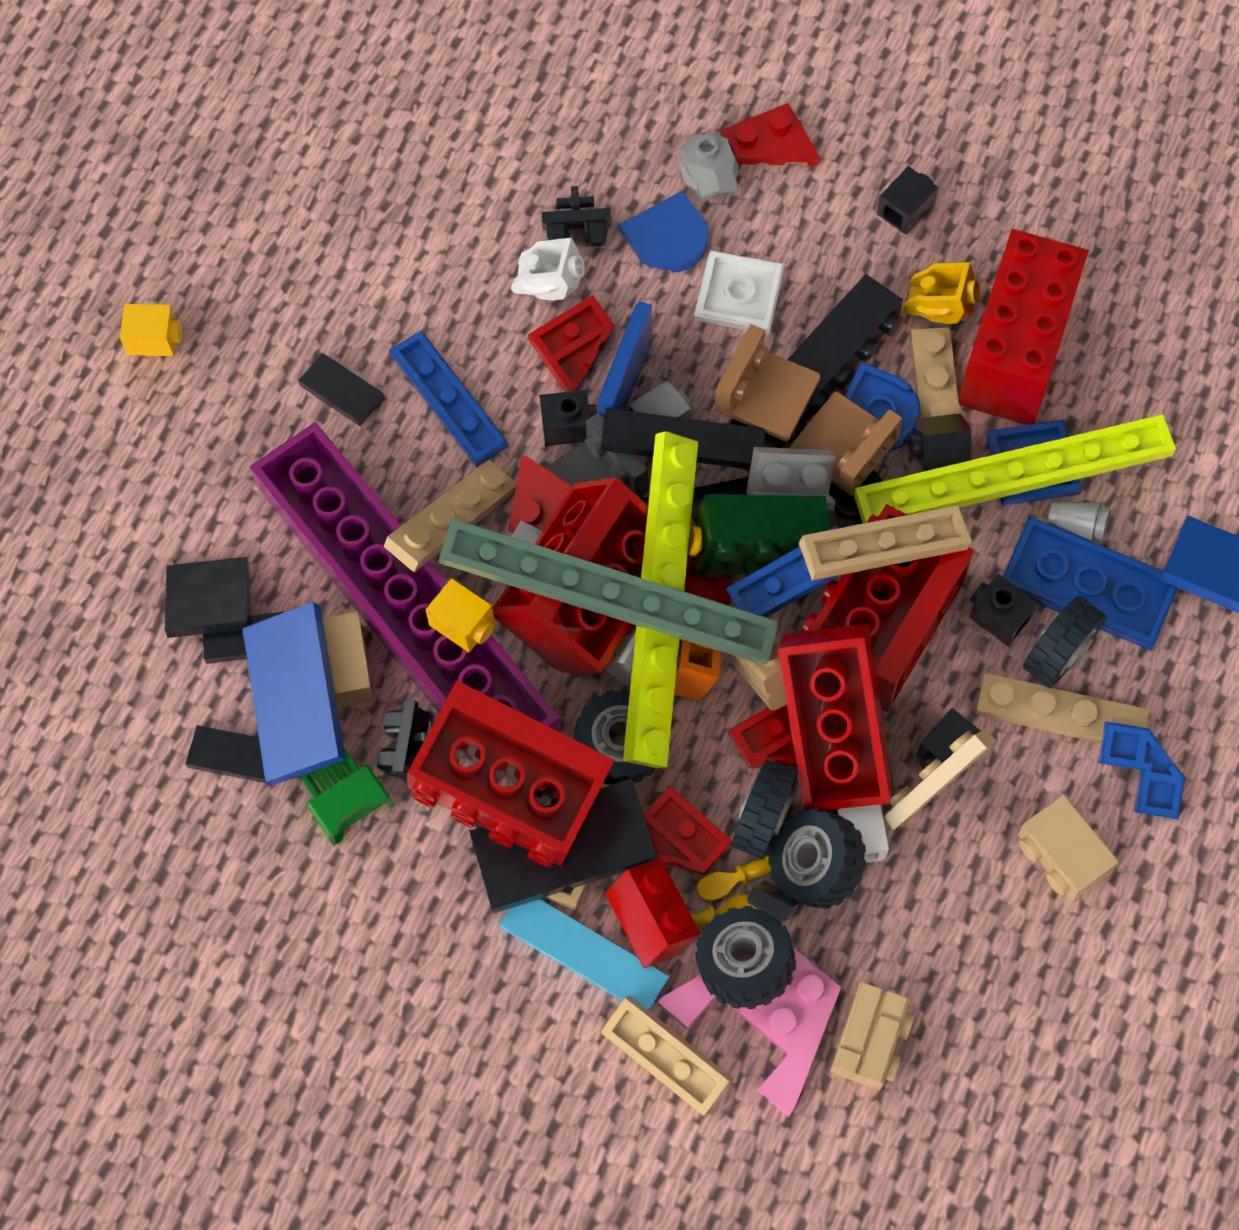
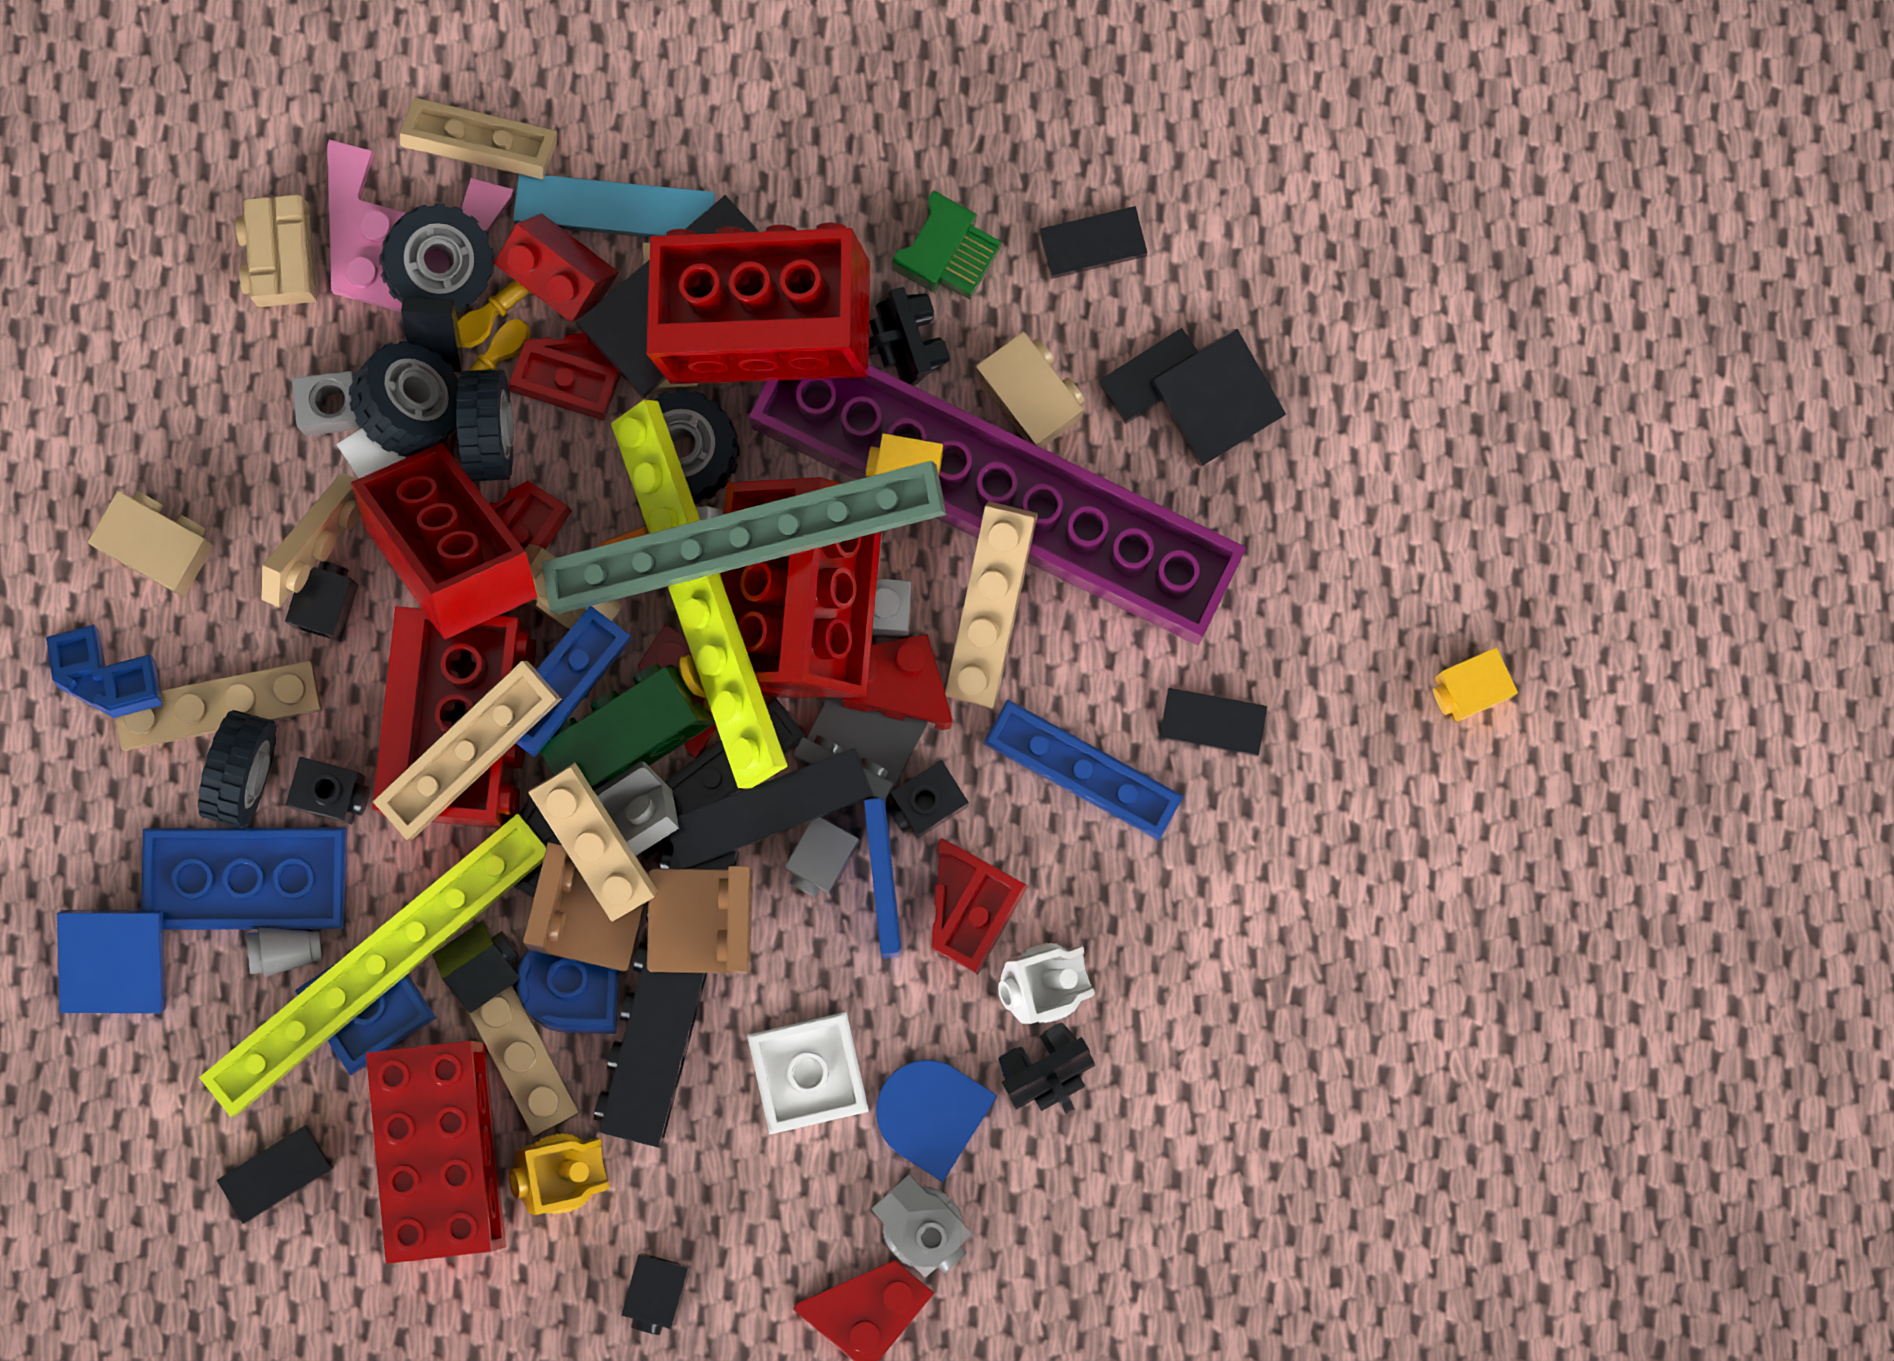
camera: 150 degrees right, 15 degrees up
(293, 694) = (1055, 321): tile -> none
(820, 462) = (593, 842): none -> tan plate
(897, 886) = (309, 396): none -> light grey brick
(1144, 381) = (274, 1174): none -> black tile

